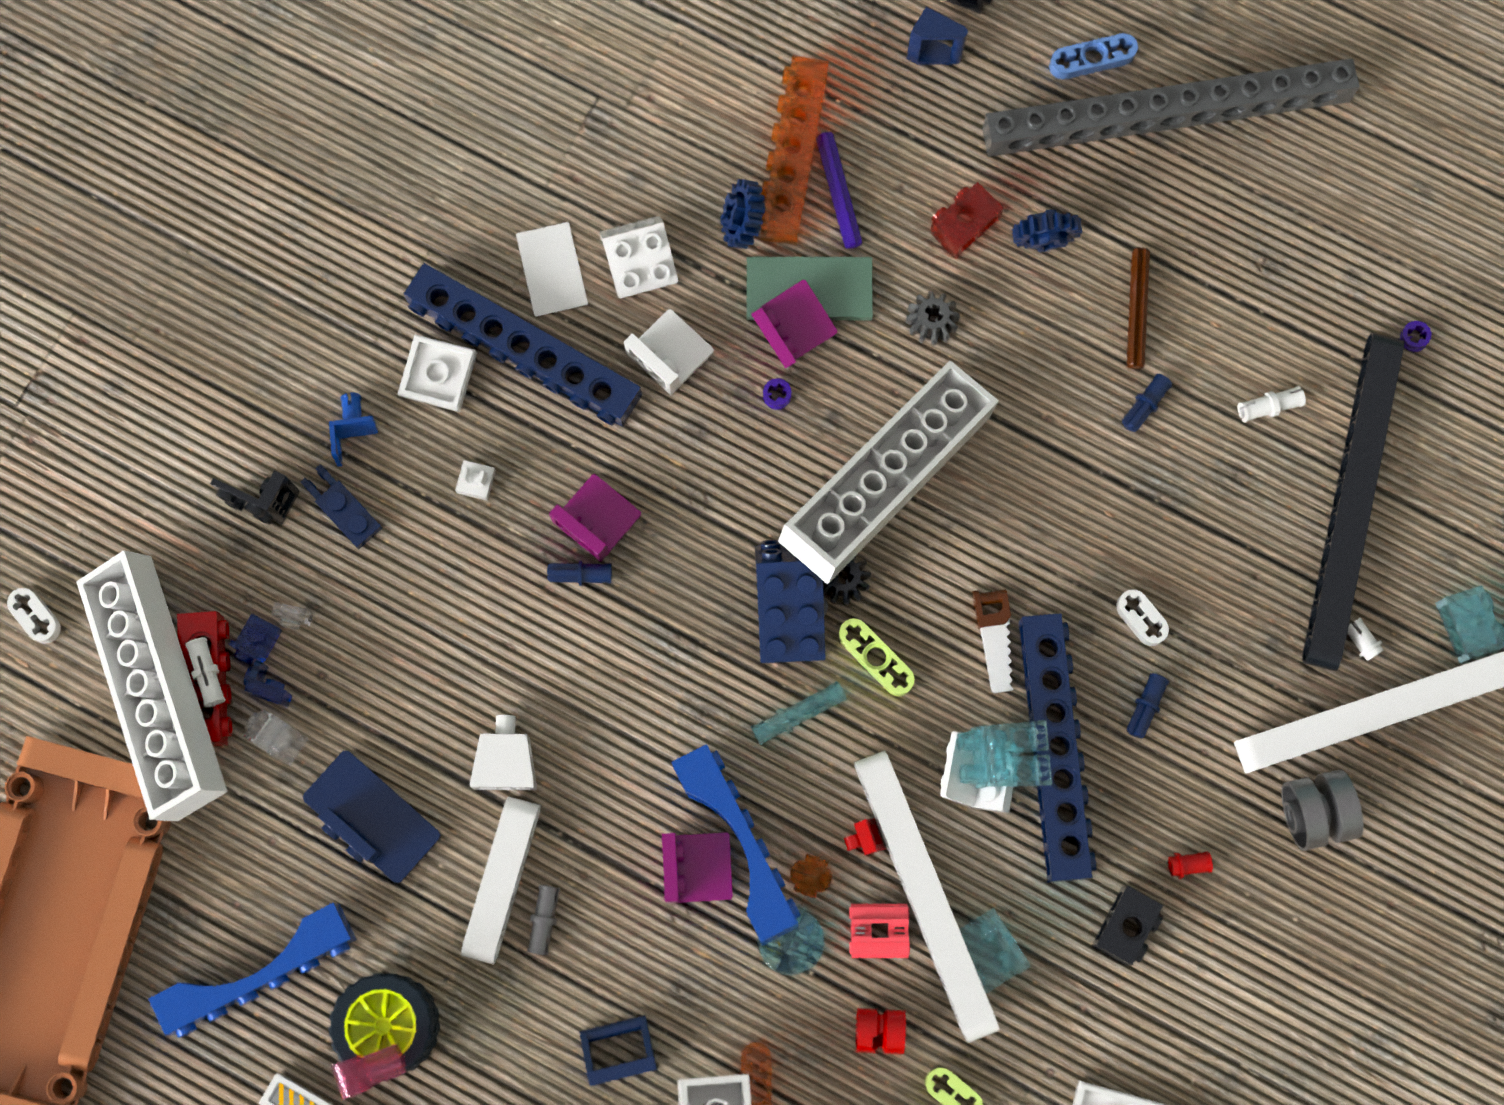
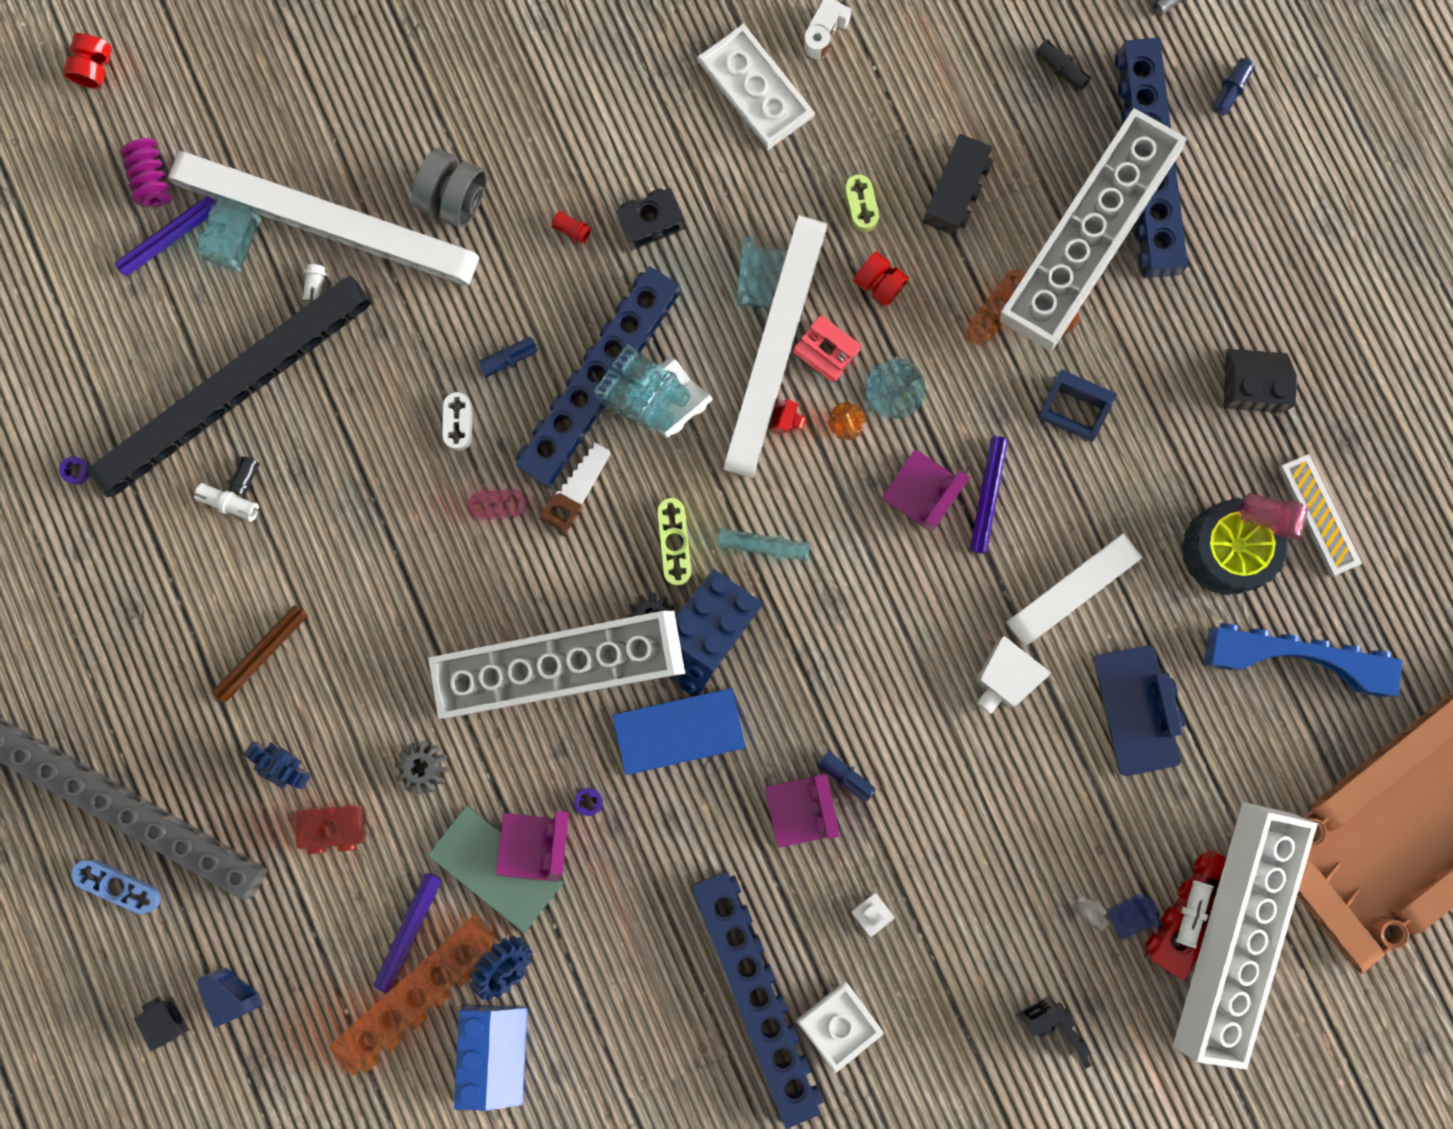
camera: 140 degrees left, 5 degrees up
(27, 619) = (1286, 1072): white beam -> none
(270, 690) = (1150, 866): clear blue bracket -> none
(274, 736) = (1172, 823): clear brick -> none
(343, 509) = (992, 971): dark blue hinge -> none
(351, 425) = (938, 1036): blue bracket -> none
(543, 920) = (1063, 537): flat silver pin -> none
(551, 269) = (683, 1047): white sticker -> none
(637, 909) = (988, 495): none -> dark purple axle
(639, 256) = (607, 1001): white bracket -> none
(669, 351) = (644, 902): white bracket -> none
(698, 148) = (490, 1057): none -> slope
(747, 505) = (679, 731): none -> blue tile
(766, 905) = (873, 546): blue arch -> none
(1054, 580) = (498, 511): none -> clear pink beam
(1146, 402) = (317, 575): dark blue axle -> none
(1276, 434) = (243, 476): none -> black pin

